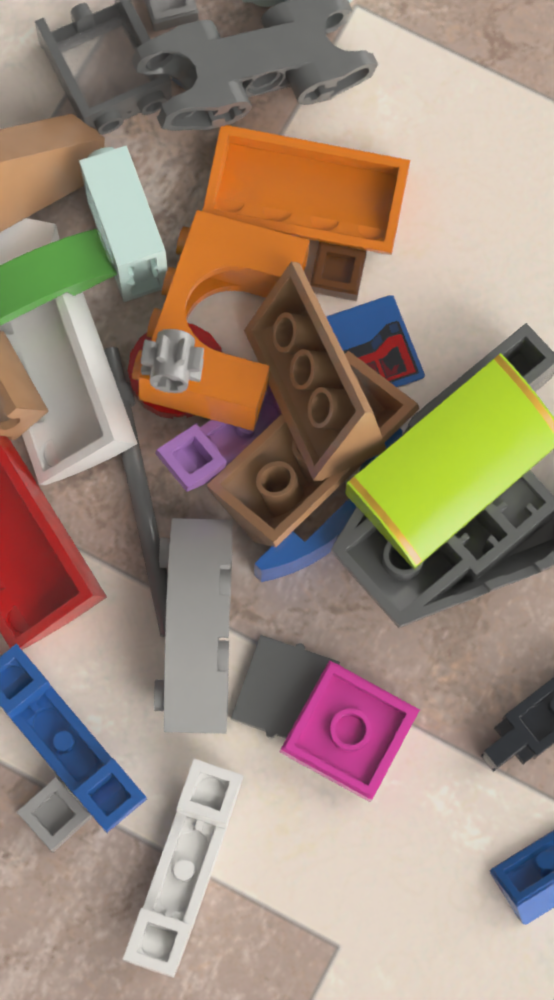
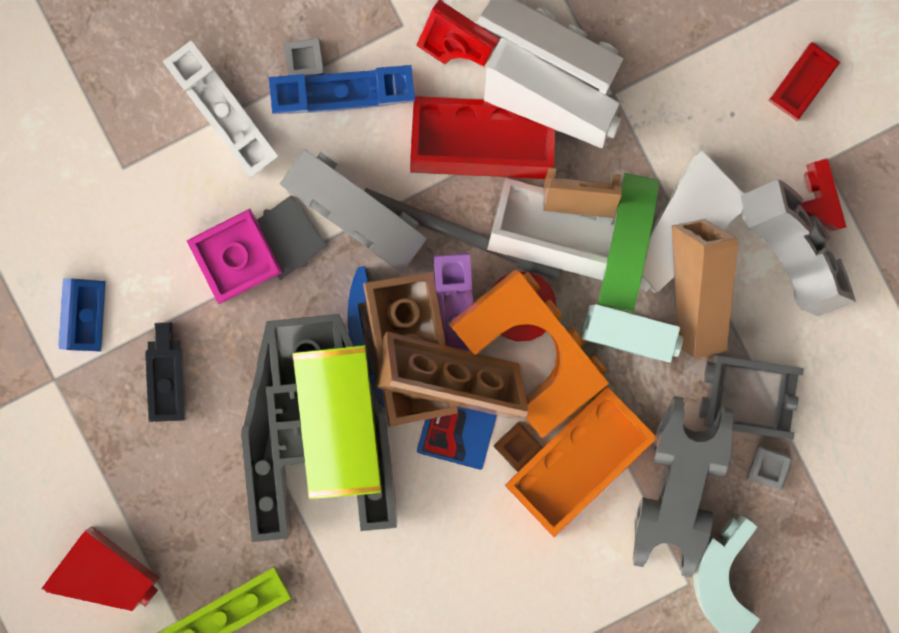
camera: 120 degrees right, 15 degrees up
(172, 361) = (510, 295): light grey gear -> none

